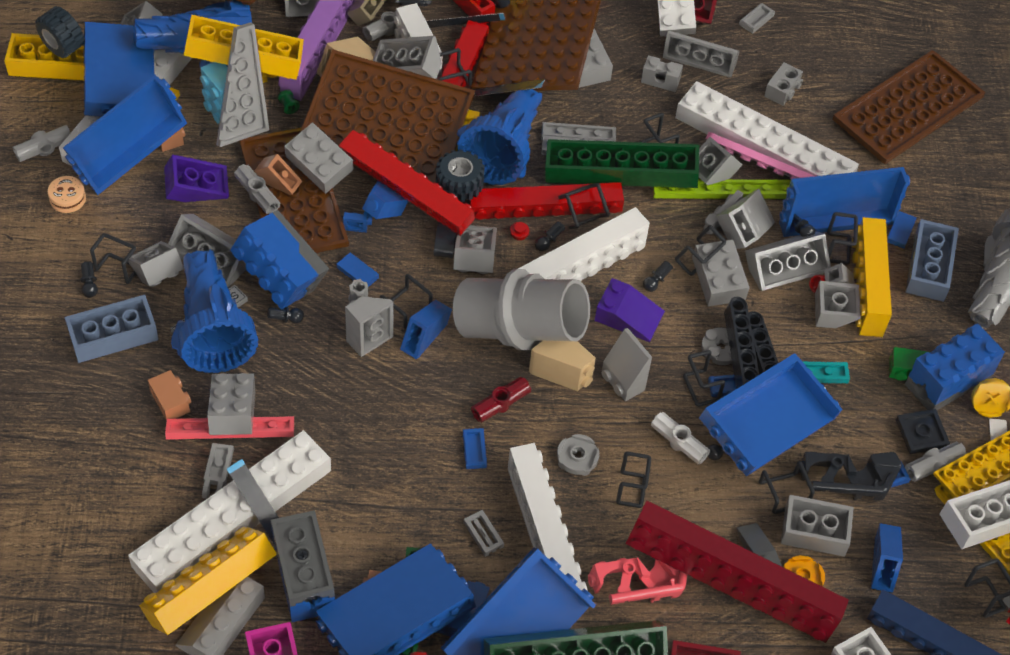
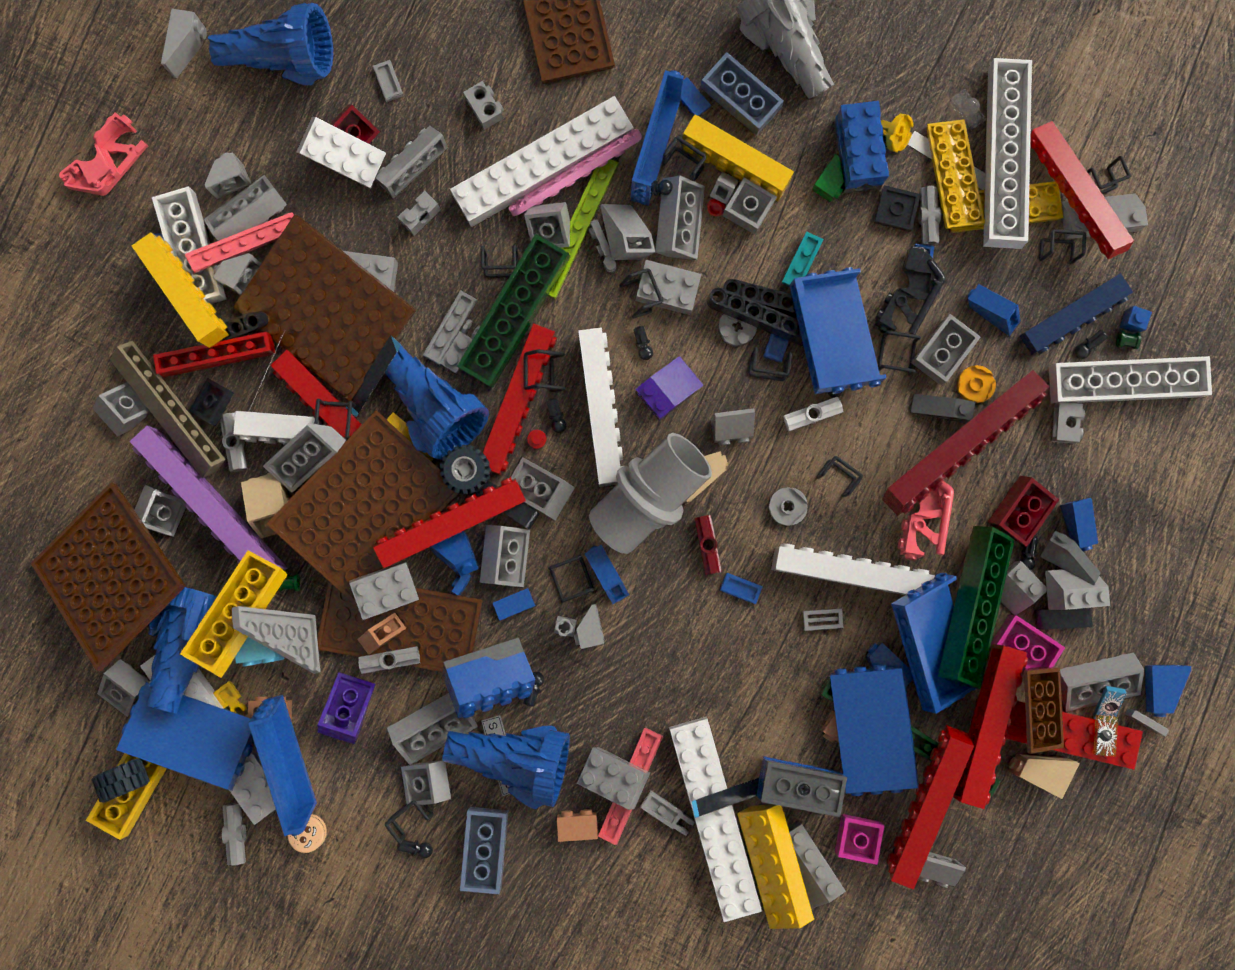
camera: 60 degrees left, 30 degrees up
(399, 245) = (504, 555): none -> light grey slope

